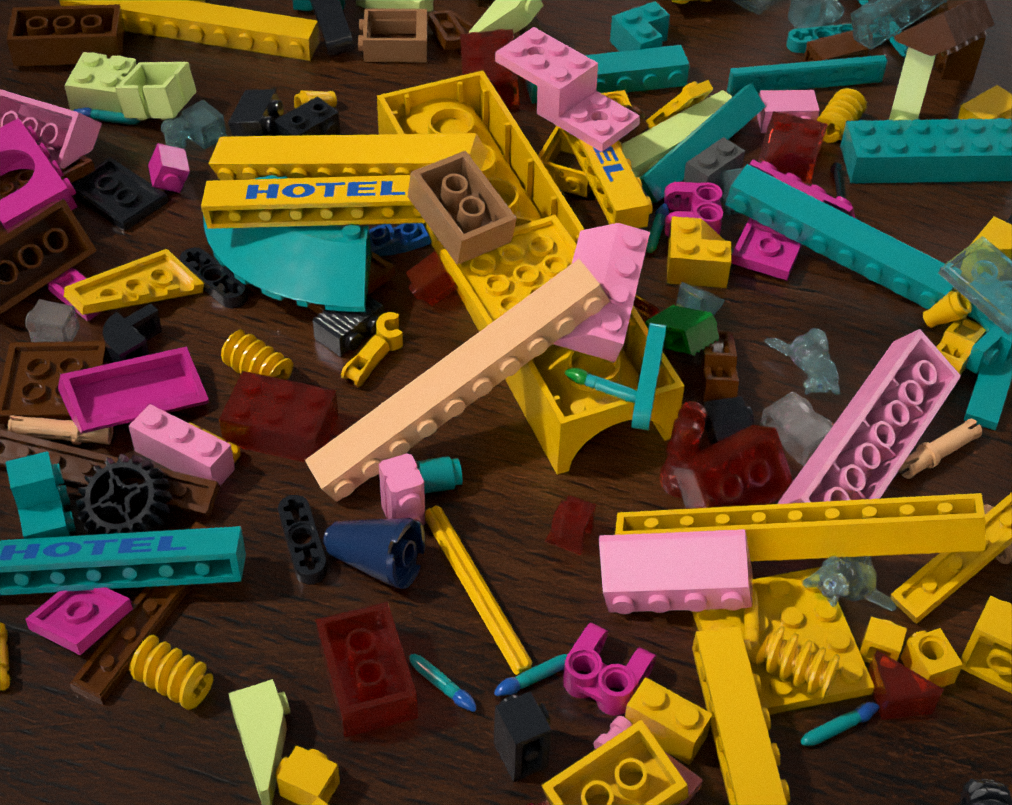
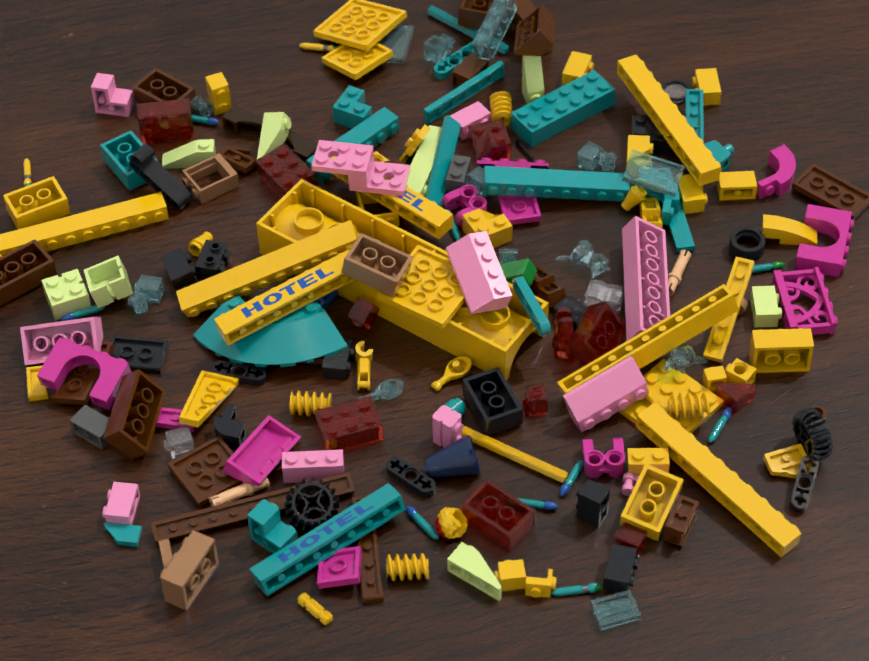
camera: 30 degrees left, 0 degrees up
(168, 168) = (158, 324): dark pink brick -> none
(258, 596) = (422, 522): none -> teal piece
(288, 640) = (450, 523): none -> yellow piece
(368, 396) = (387, 390): none -> clear light blue piece
(457, 380) = (439, 357): light nougat brick -> none
(493, 420) = (454, 370): none -> yellow piece
(502, 492) = (492, 401): none -> black brick
(598, 383) = (497, 323): teal piece -> none
(930, 229) = (593, 155): none -> clear light blue brick

